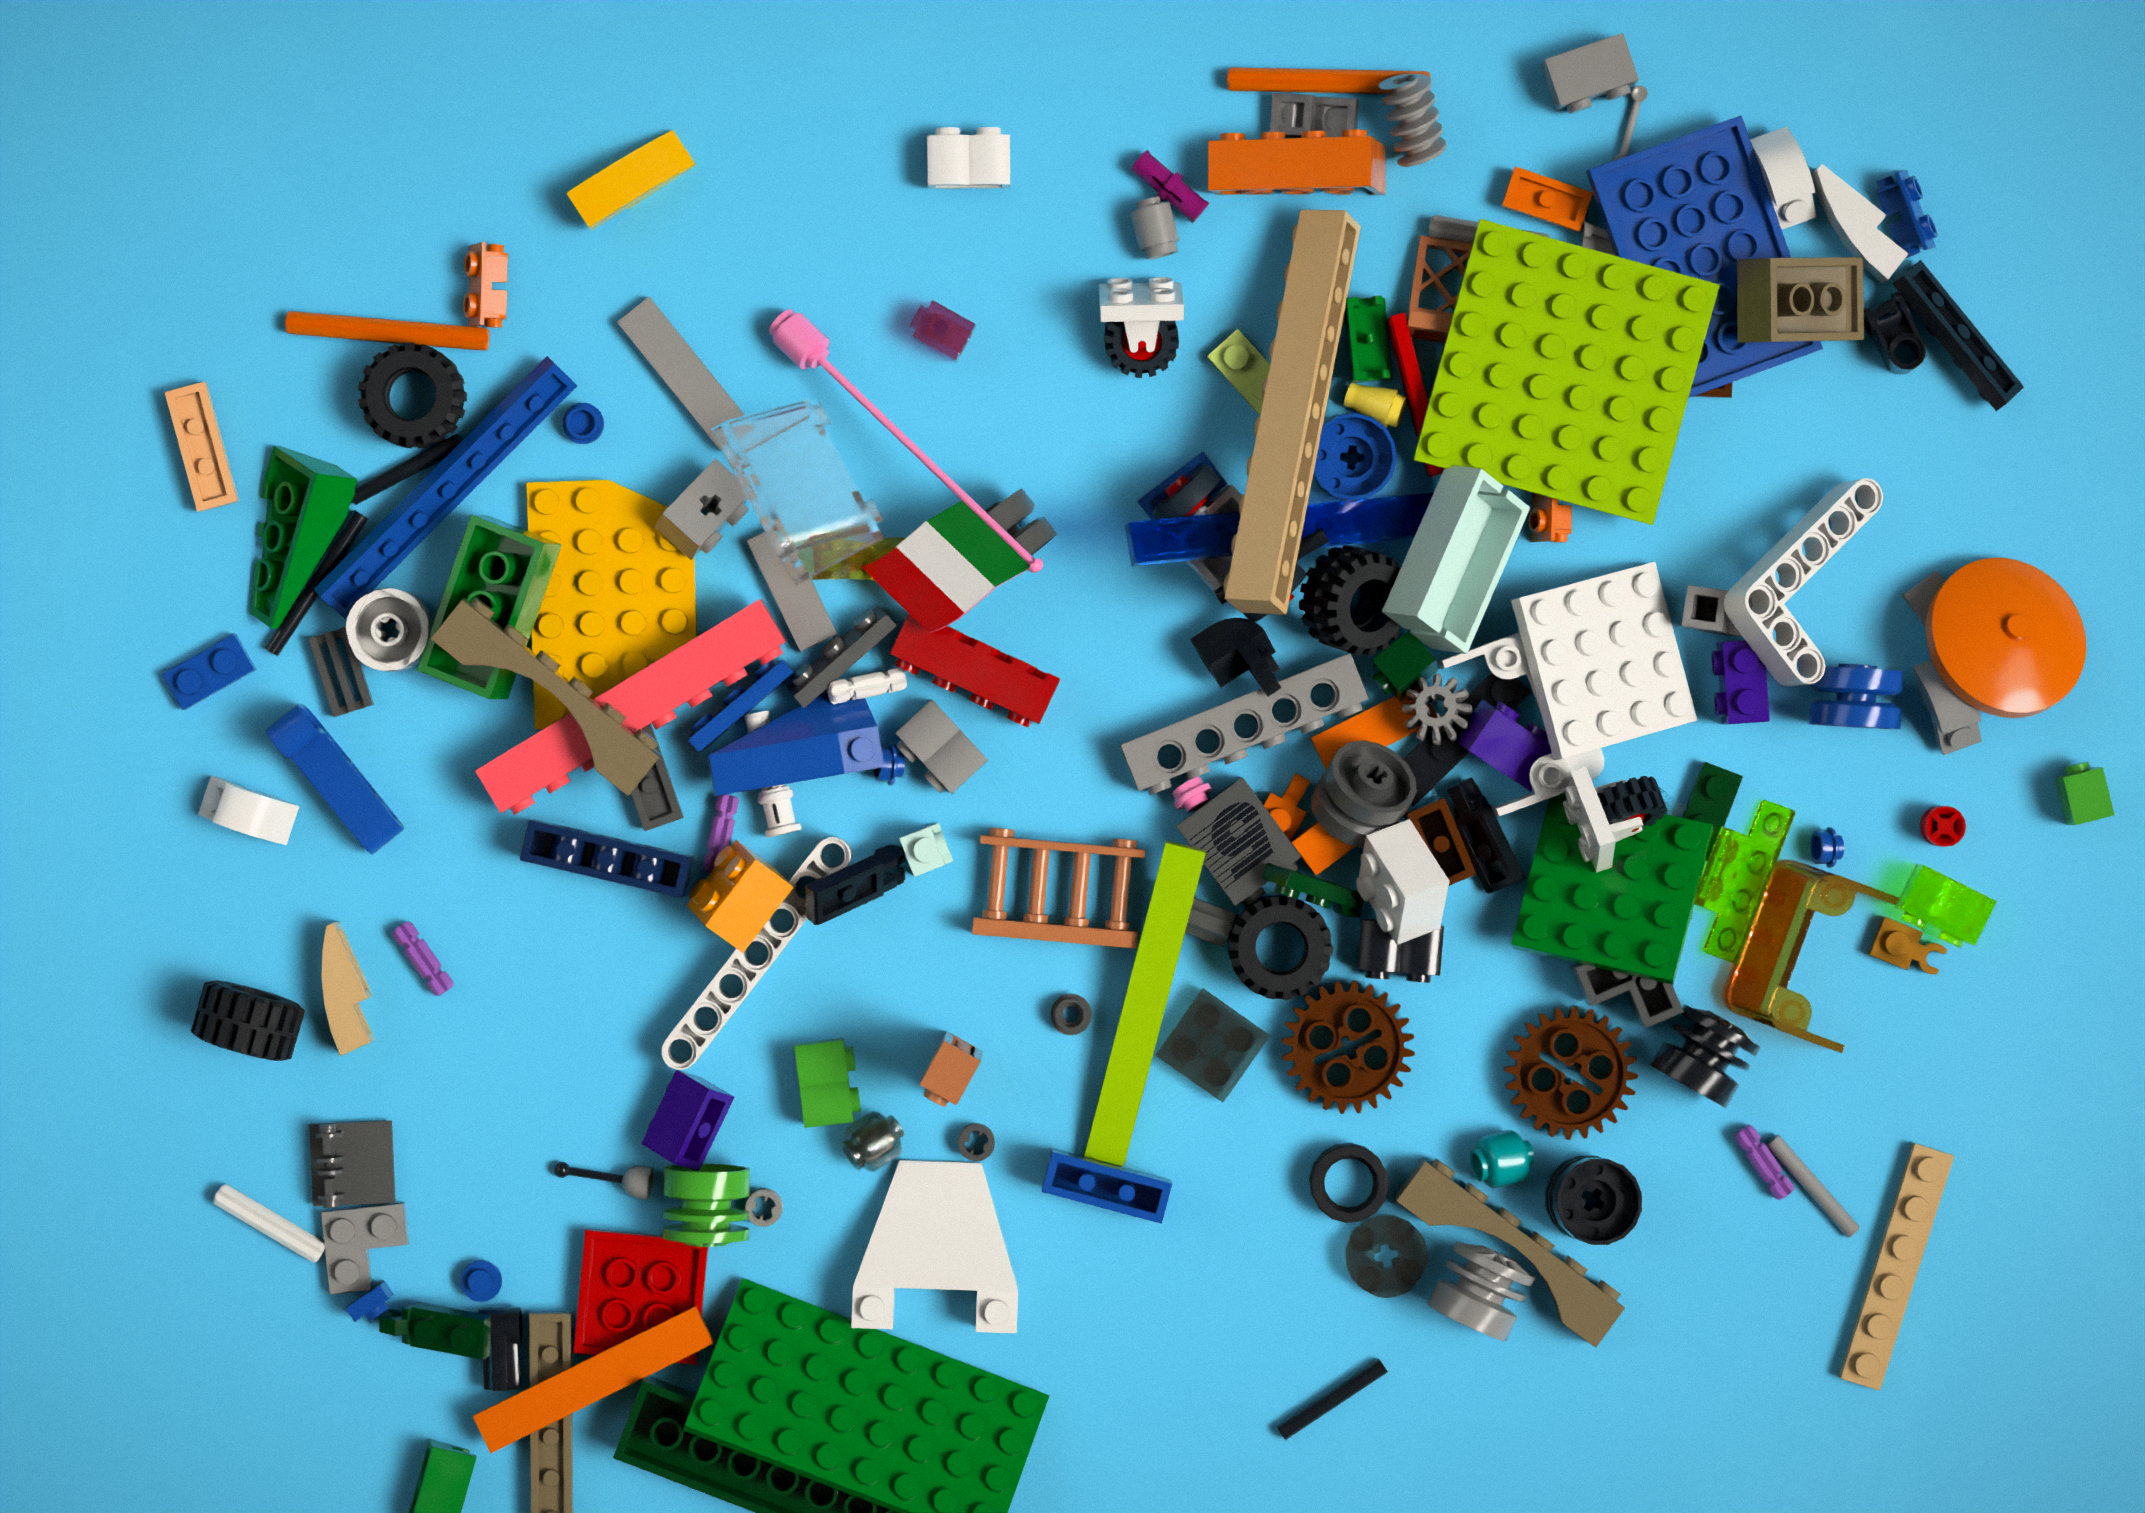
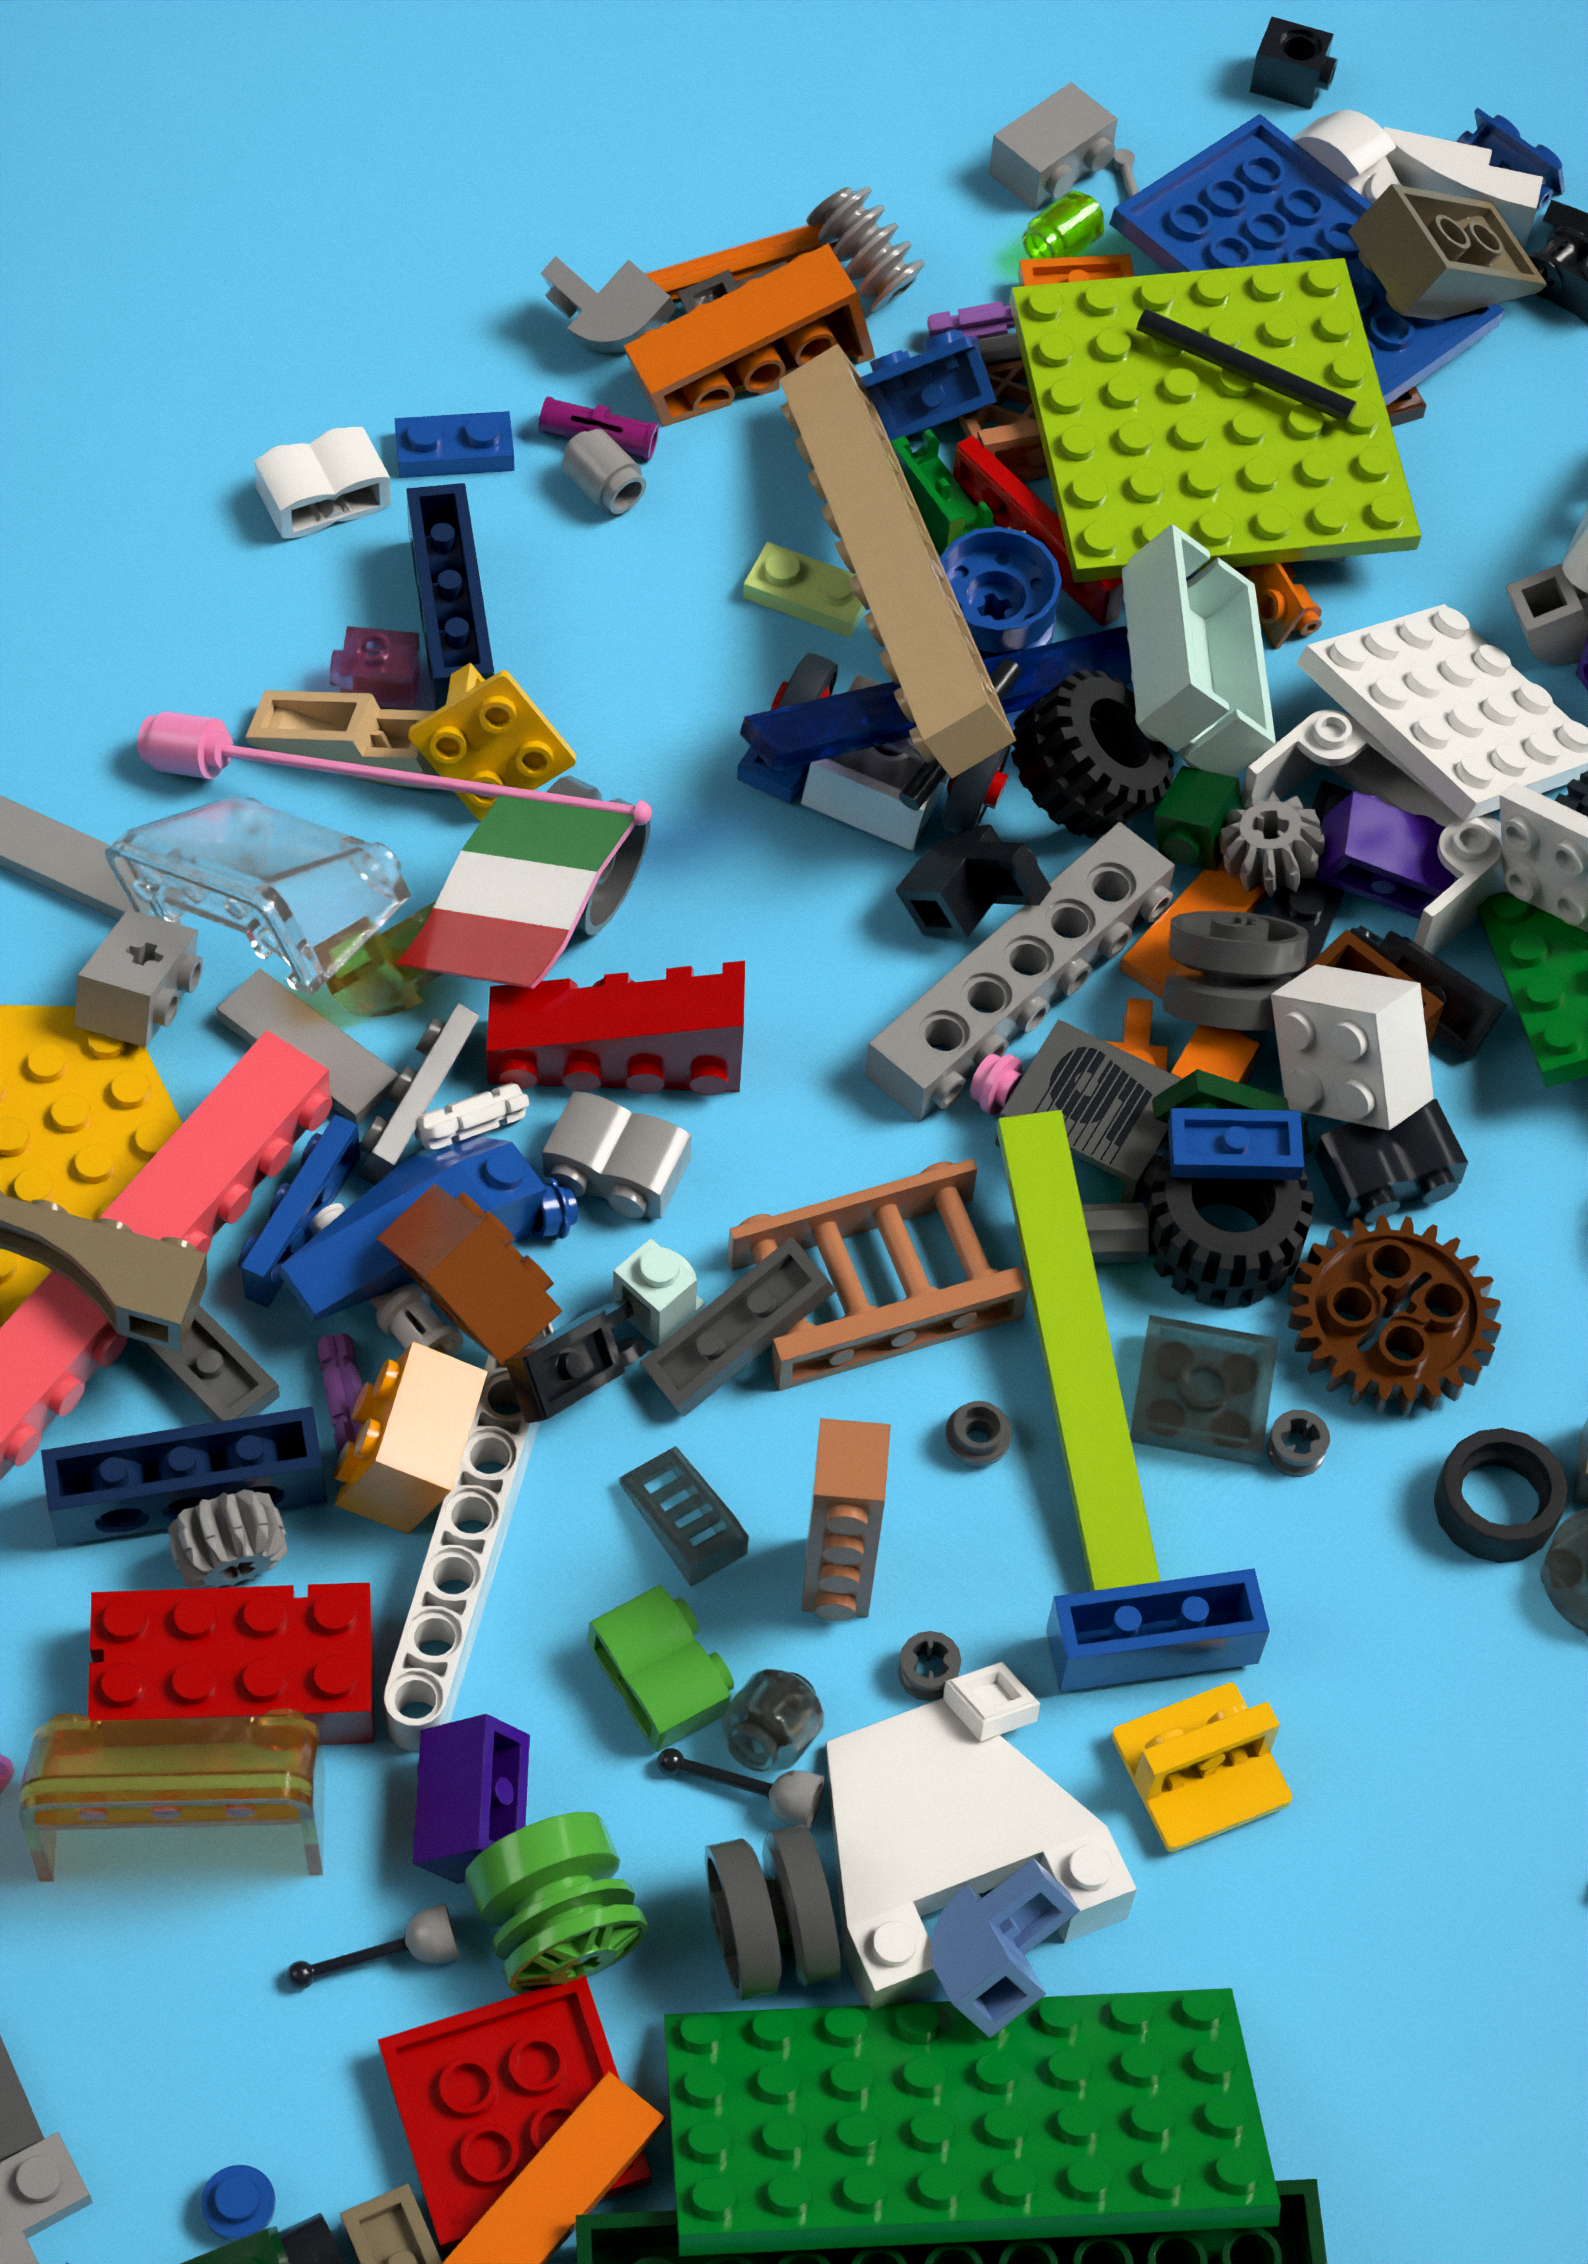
camera: 30 degrees left, 30 degrees down
(526, 1059) = (172, 1777): none -> clear orange windscreen
(590, 983) = (236, 1655): none -> red piece
(615, 908) = (227, 1539): none -> light grey gear
(776, 1210) = (661, 1874): light grey bush -> none
(810, 819) = (472, 1271): none -> dark orange brick
(816, 1258) = (782, 1909): none -> dark grey wheel
(863, 1187) = (791, 1797): none -> hinge
(885, 1025) = (692, 1561): none -> clear smoke slope
(905, 371) = (339, 729): none -> tan slope
(916, 1334) = (984, 1943): none -> medium blue brick
(959, 897) = (737, 1326): none -> dark grey plate
(985, 429) = (491, 737): none -> yellow bracket
(998, 1181) = (991, 1701): none -> white tile
(1008, 301) = (447, 585): none -> dark blue brick
(1070, 157) = (454, 444): none -> blue plate
(1097, 1266) = (1204, 1765): none -> yellow bracket
(1141, 323) = (636, 563): white plate -> none
(1214, 106) = (613, 316): none -> light grey brick
(1258, 1109) = (1286, 1459): none -> dark grey bush
(1294, 923) = (1235, 1144): none -> blue plate
(1398, 251) = (929, 386): none -> blue bracket
(1464, 205) = (975, 321): none -> medium lavender axle
(1560, 149) = (1064, 227): none -> clear neon green brick
(1599, 355) = (1246, 365): none -> black bar
(1779, 65) = (1293, 63): none -> black brick

